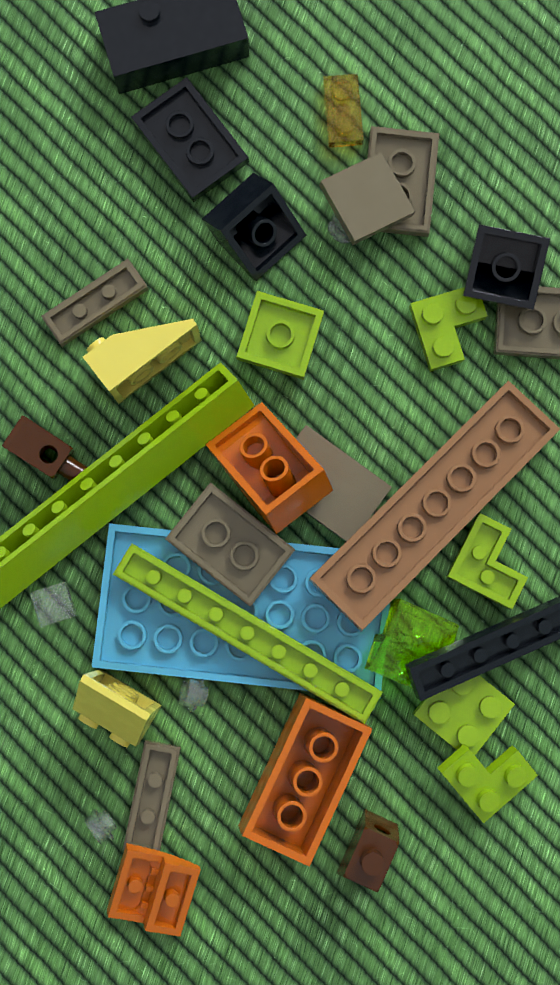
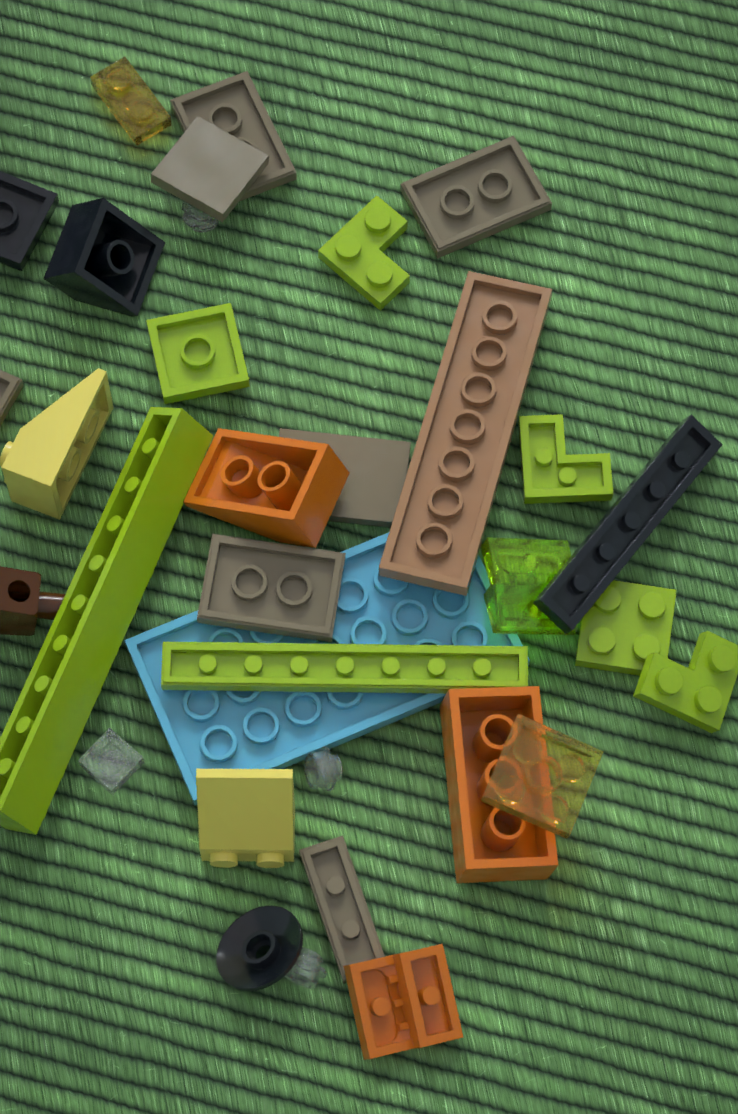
camera: 30 degrees left, 15 degrees down
(67, 789) = (259, 948): none -> black dish
(333, 802) = (542, 776): none -> clear yellow plate
(370, 851) = (616, 824): reddish brown torso -> none
(506, 266) = (396, 158): black slope -> none

